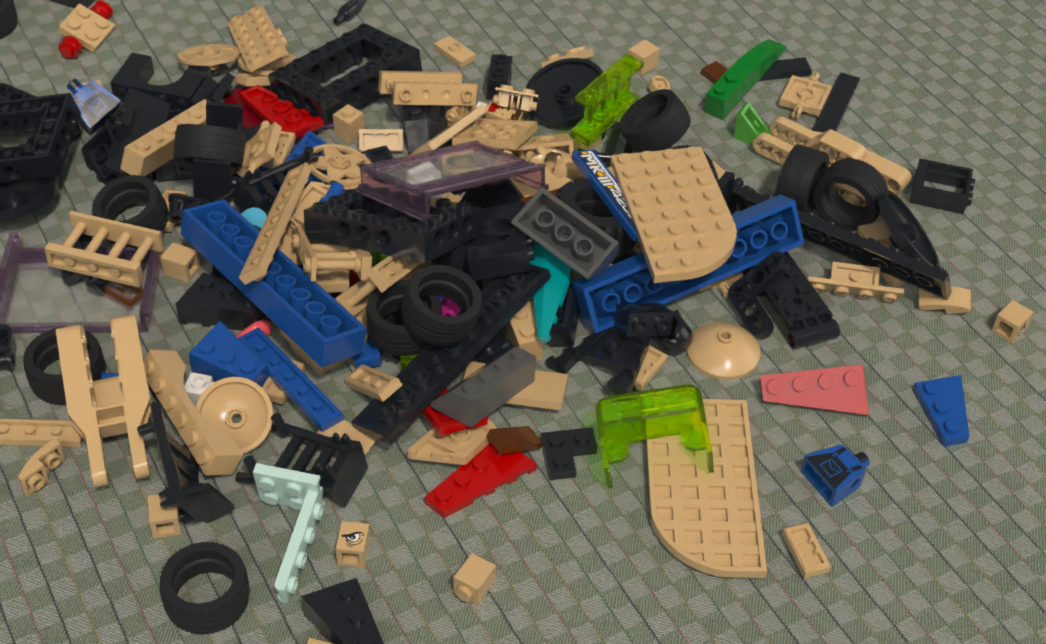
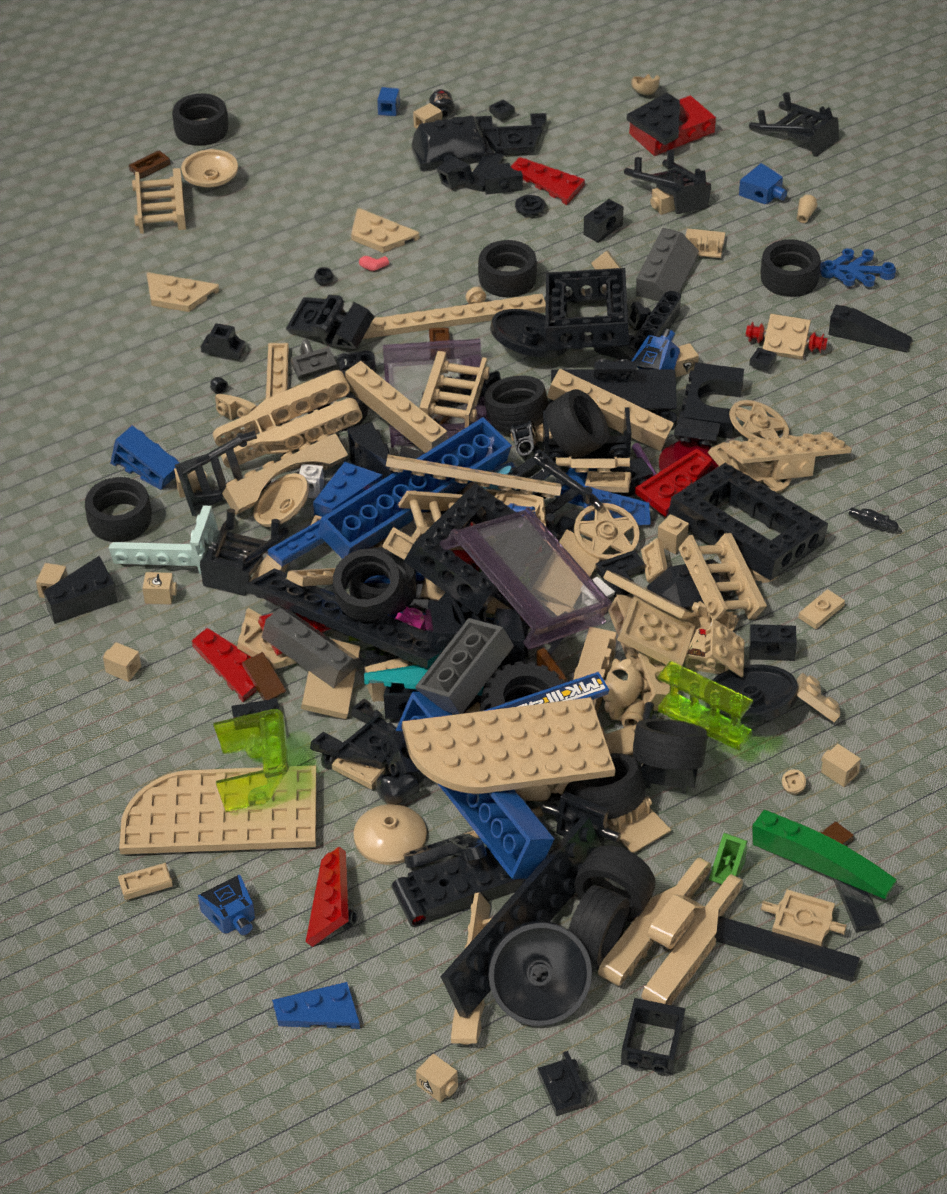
camera: 90 degrees right, 0 degrees up
(111, 48) = (763, 359): none -> black plate
(111, 560) = (143, 457): none -> blue wedge
(126, 293) = (394, 407): none -> tan brick
(184, 325) = (368, 449): none -> black slope
(997, 243) = (564, 1085): none -> black bracket

